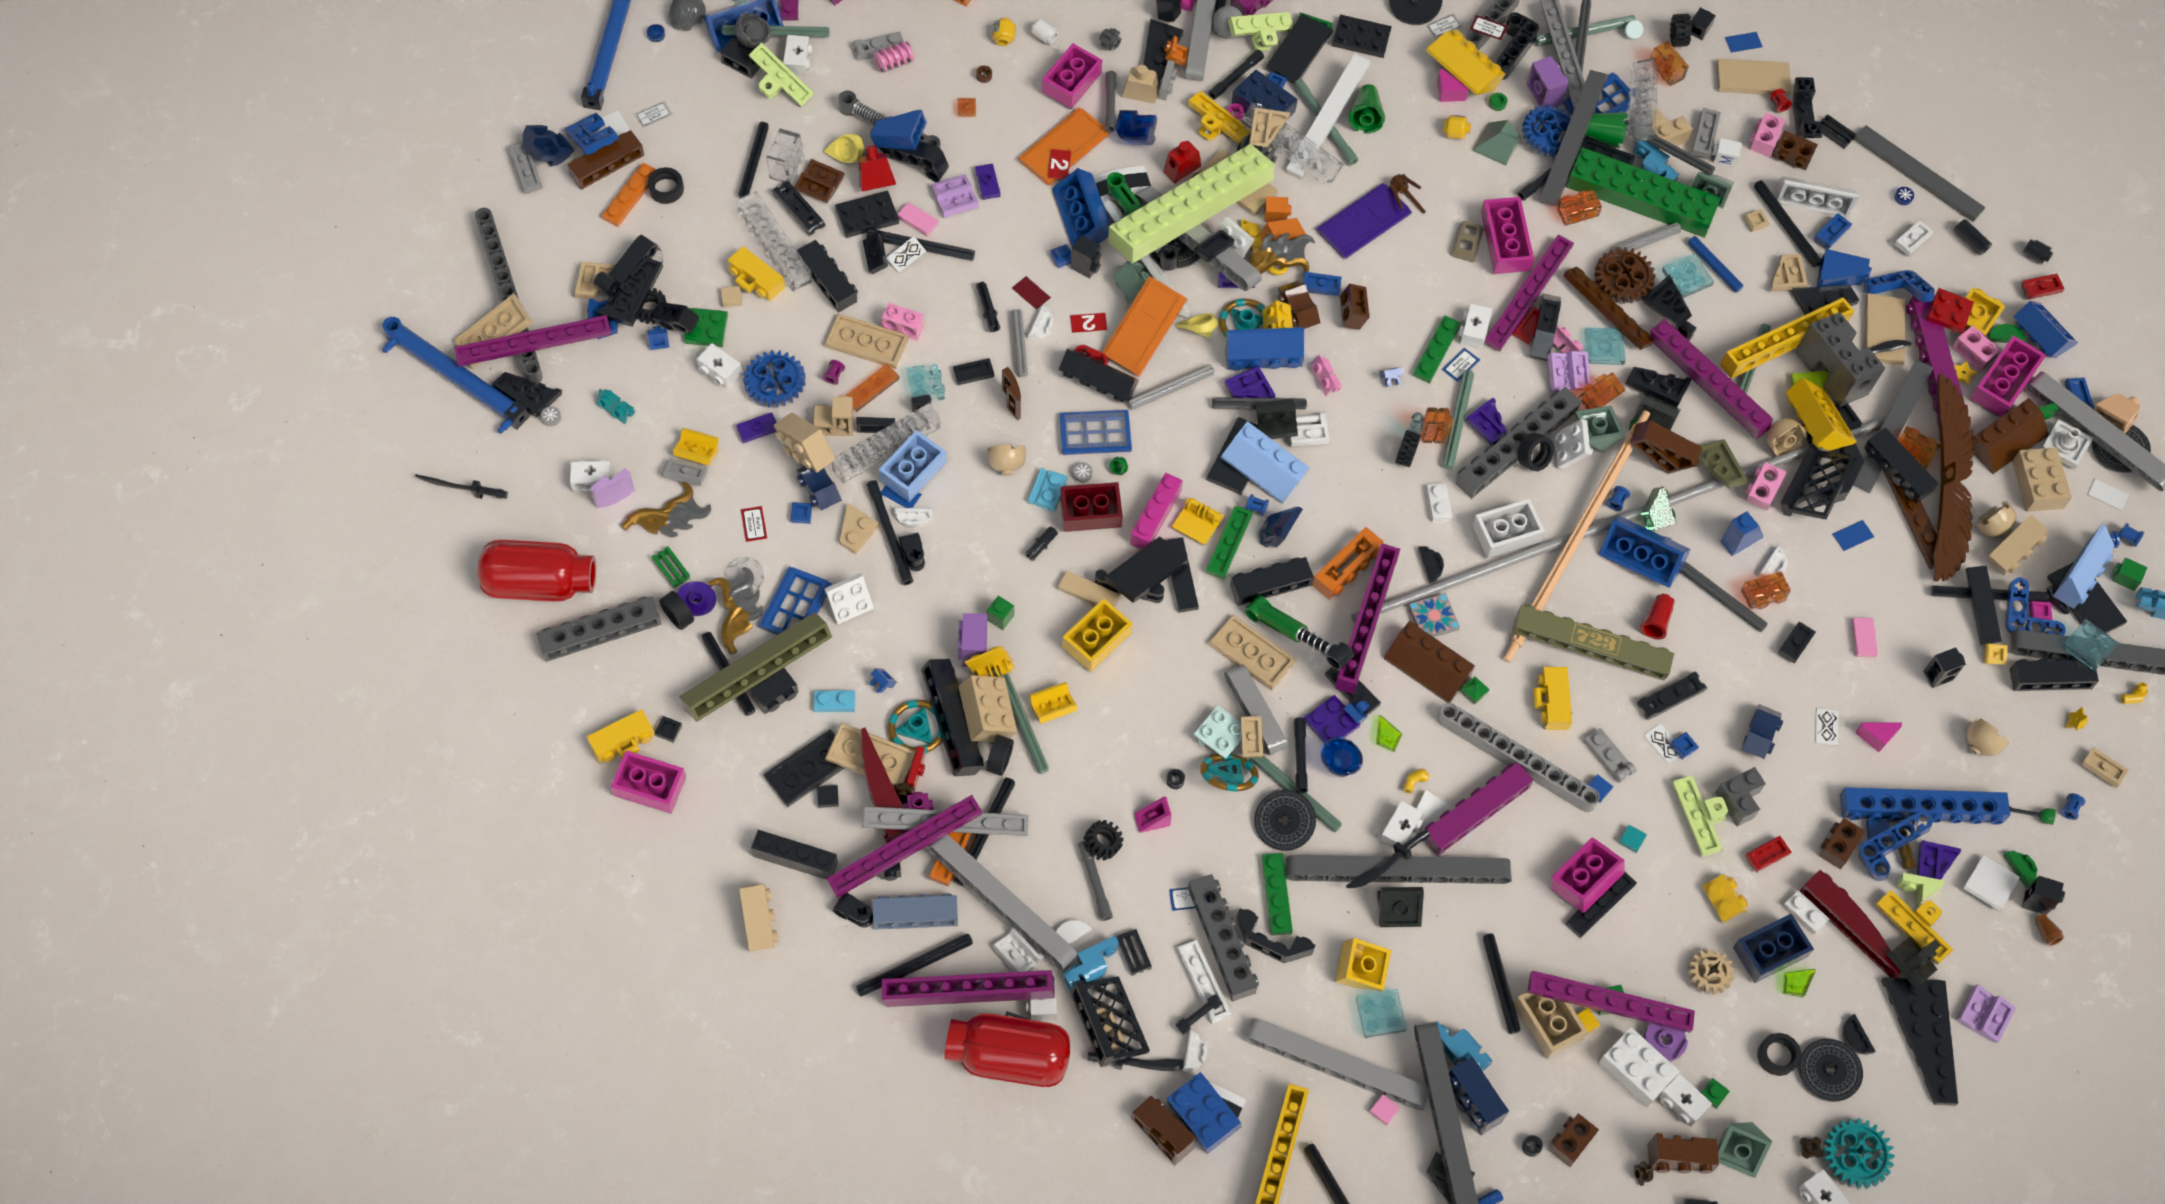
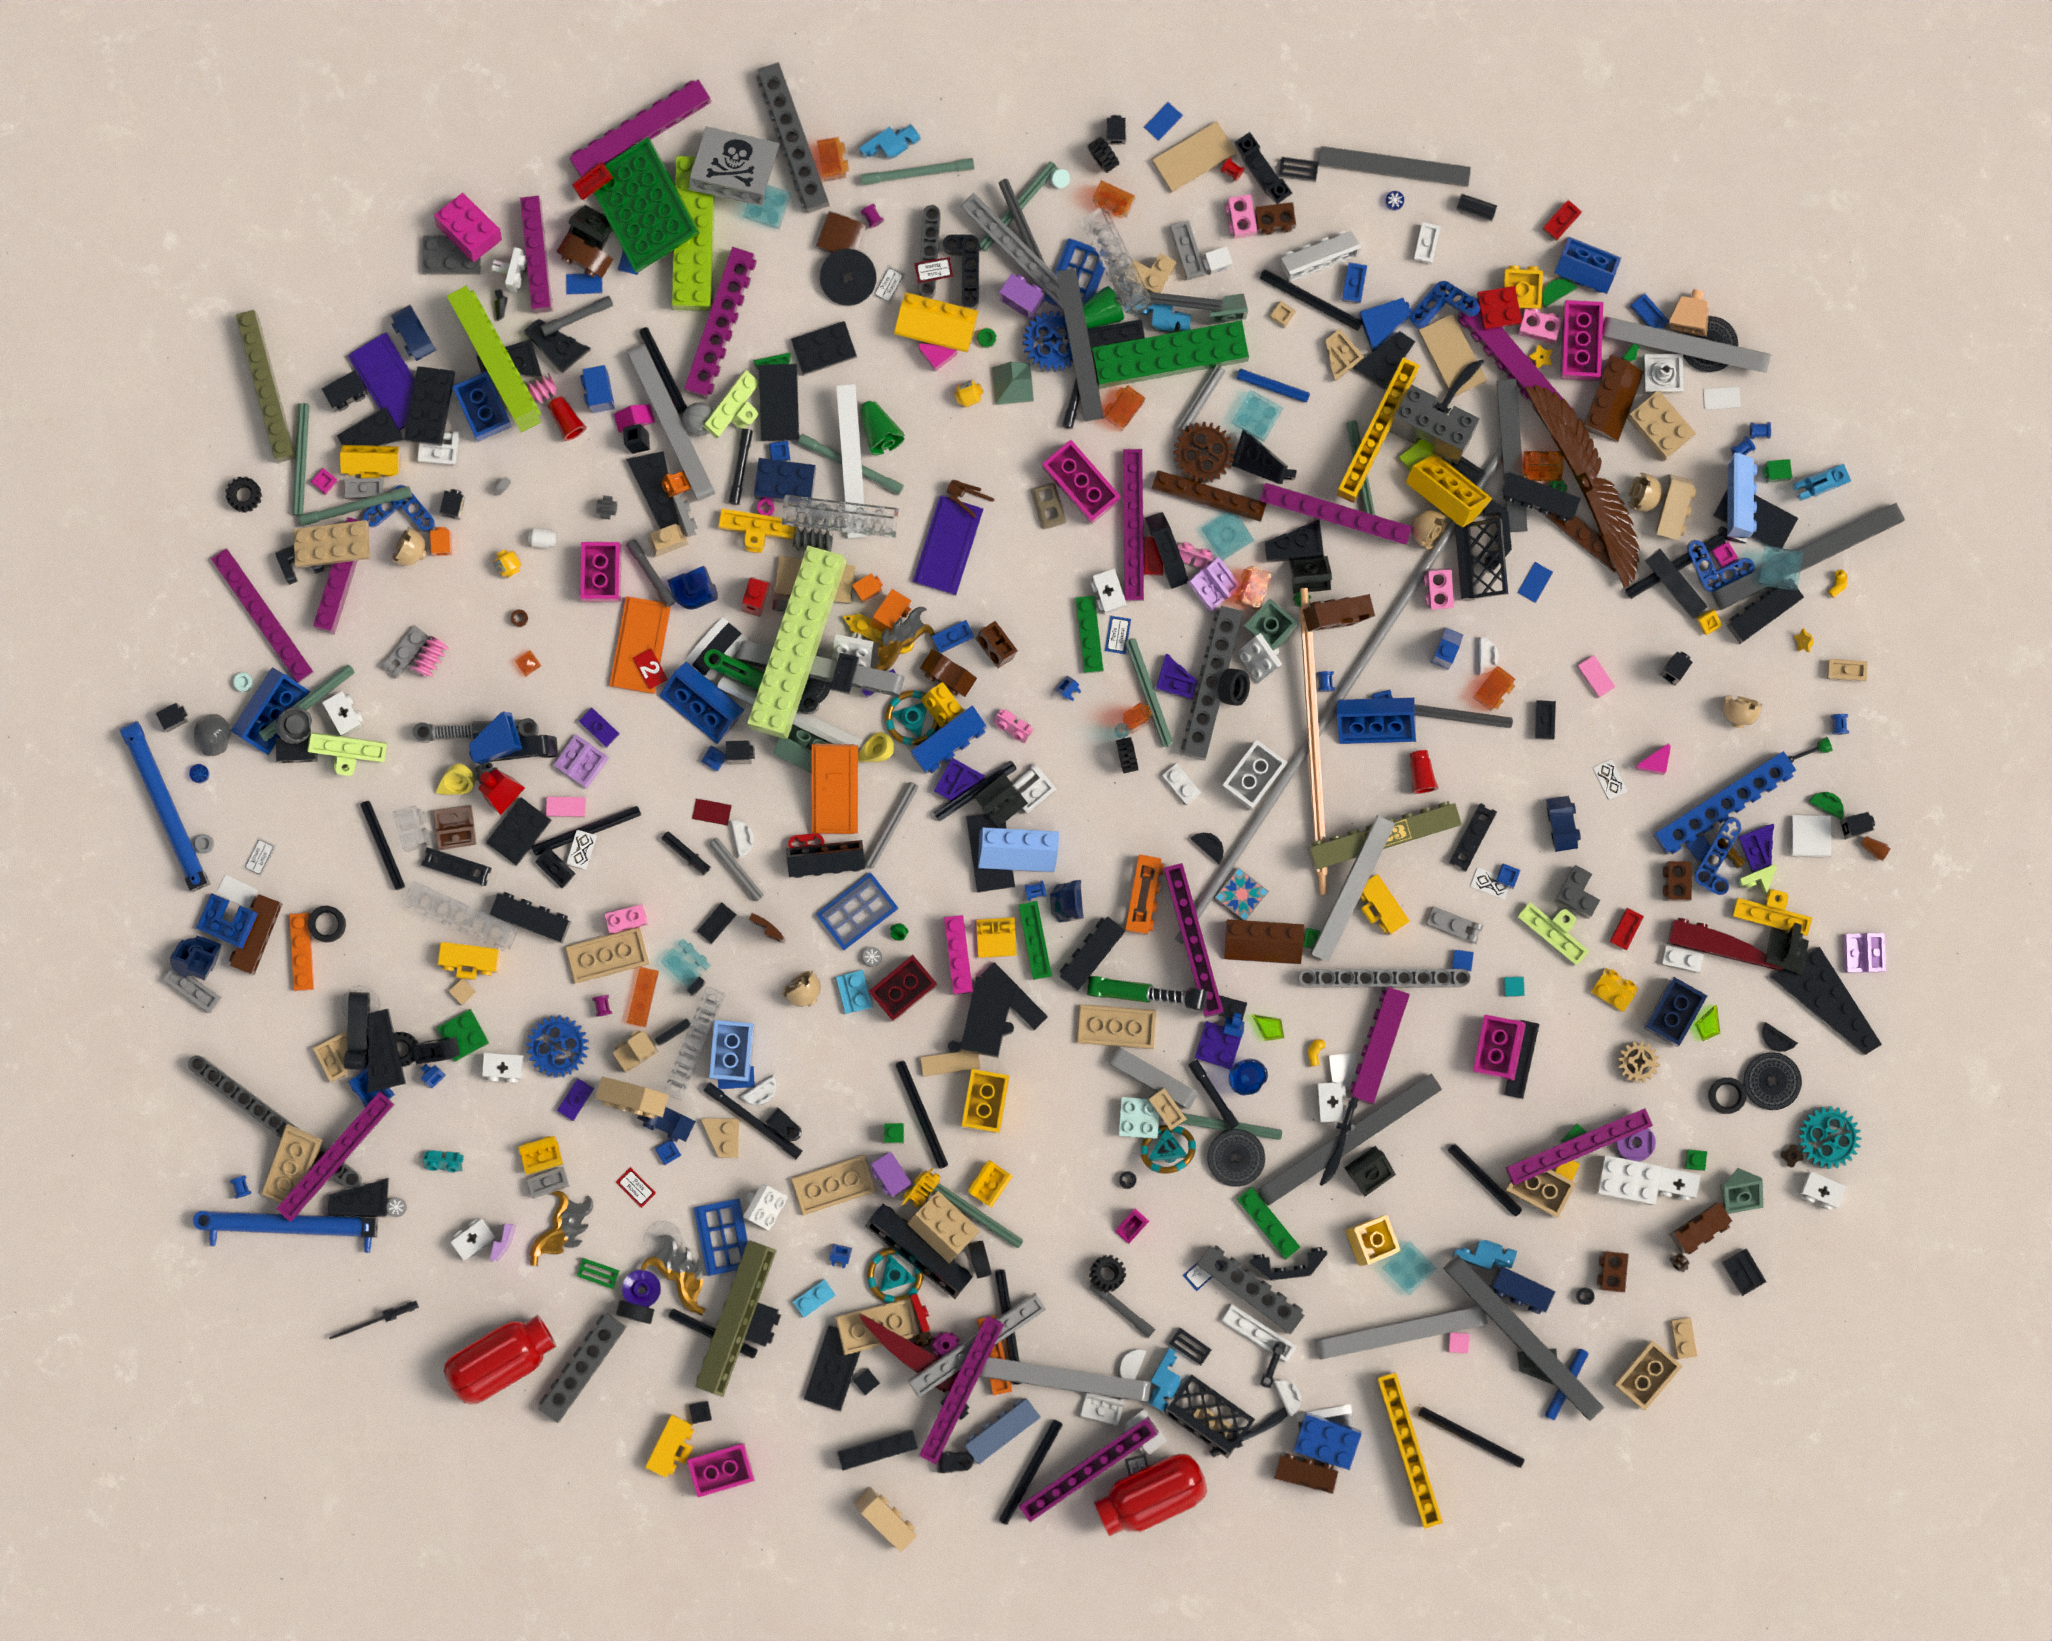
camera: 30 degrees left, 20 degrees up
(442, 324) = (240, 1187): none -> blue bush
(619, 80) = (204, 843): none -> light grey tile
(918, 624) = (833, 1185): none -> tan tile
(1034, 616) = (921, 1114): none -> black axle
(1041, 543) = (883, 1046): black axle -> none
(1088, 322) = (780, 808): red sticker -> none
(1266, 126) = (811, 520): tan wing -> none
(1537, 662) = (1352, 888): none -> light grey tile
(1657, 510) = (1365, 675): clear green slope -> none
(1722, 464) = (1390, 590): olive wing -> none
(2038, 251) = (1540, 185): black brick -> none

